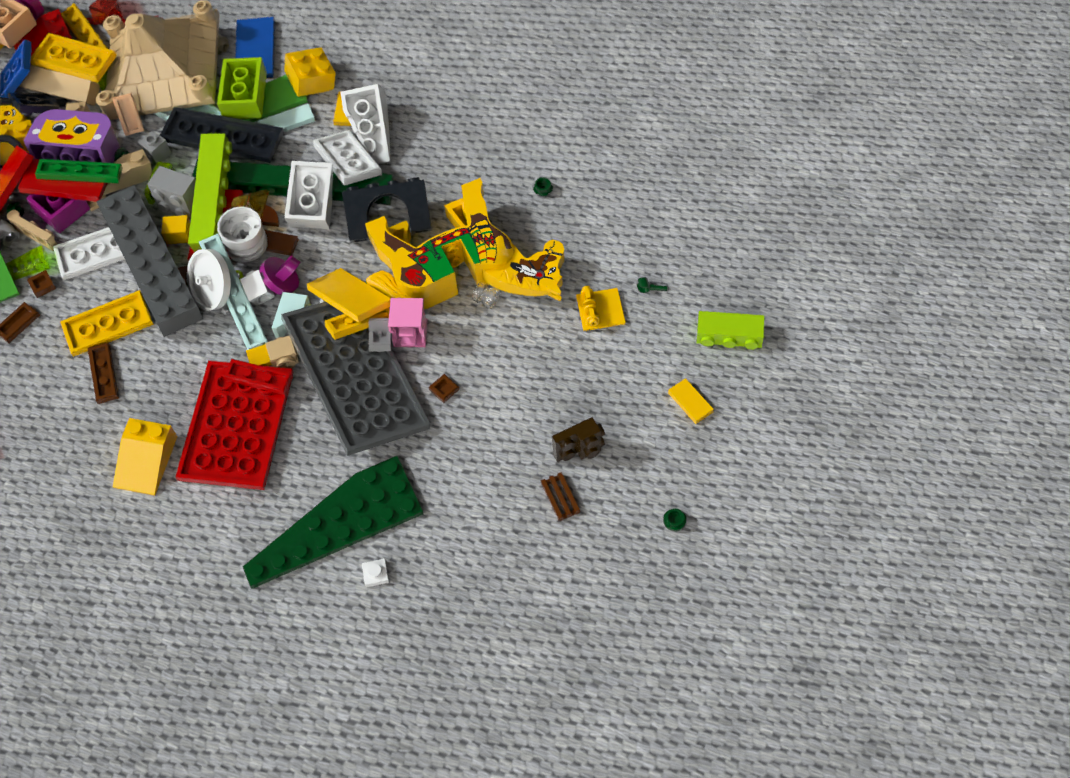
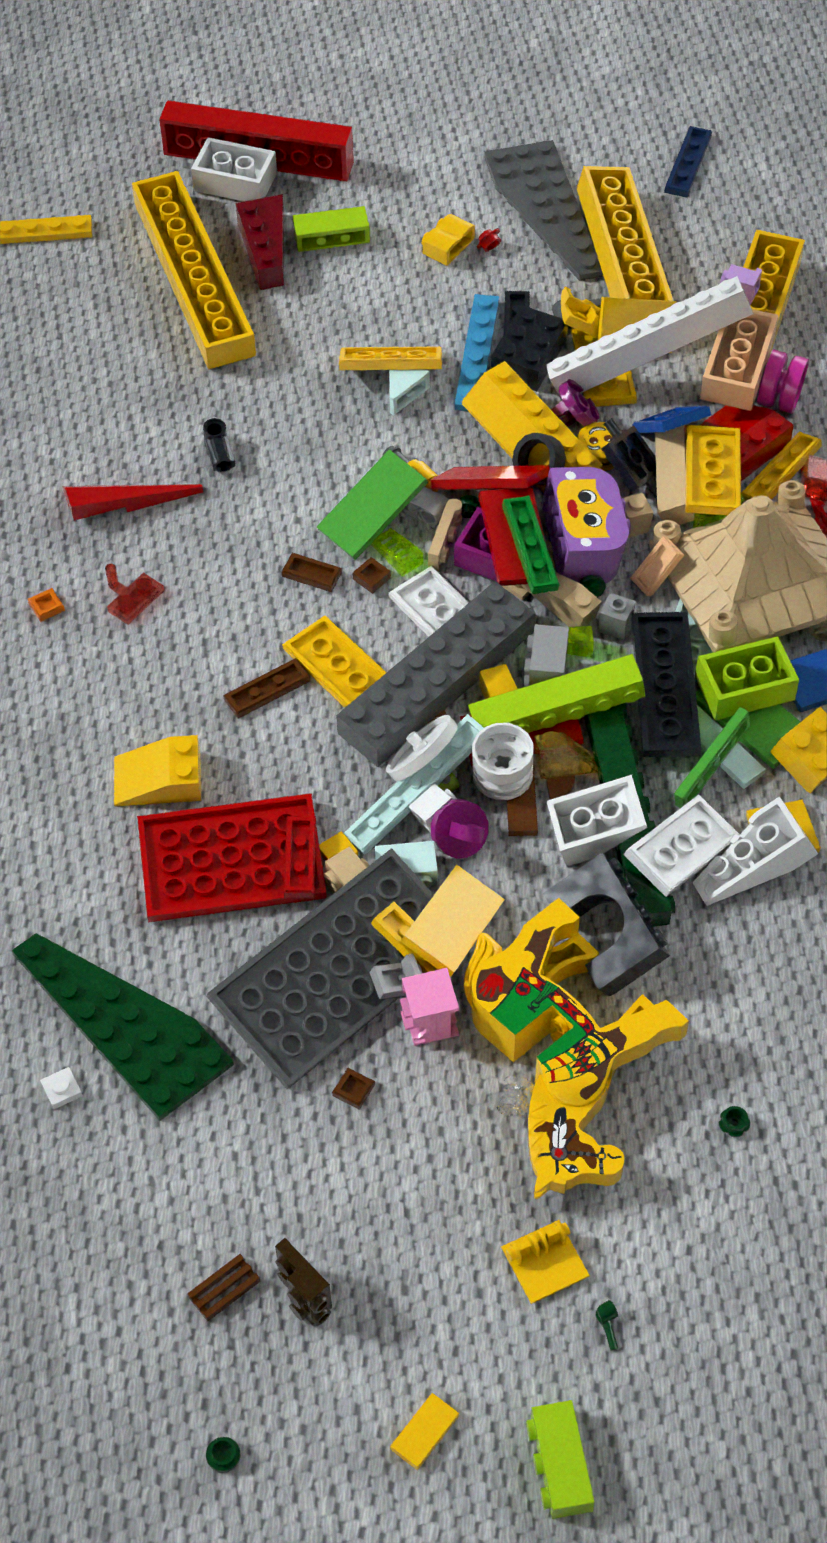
camera: 70 degrees right, 5 degrees down
(291, 124) = (712, 758): none -> bright green tile

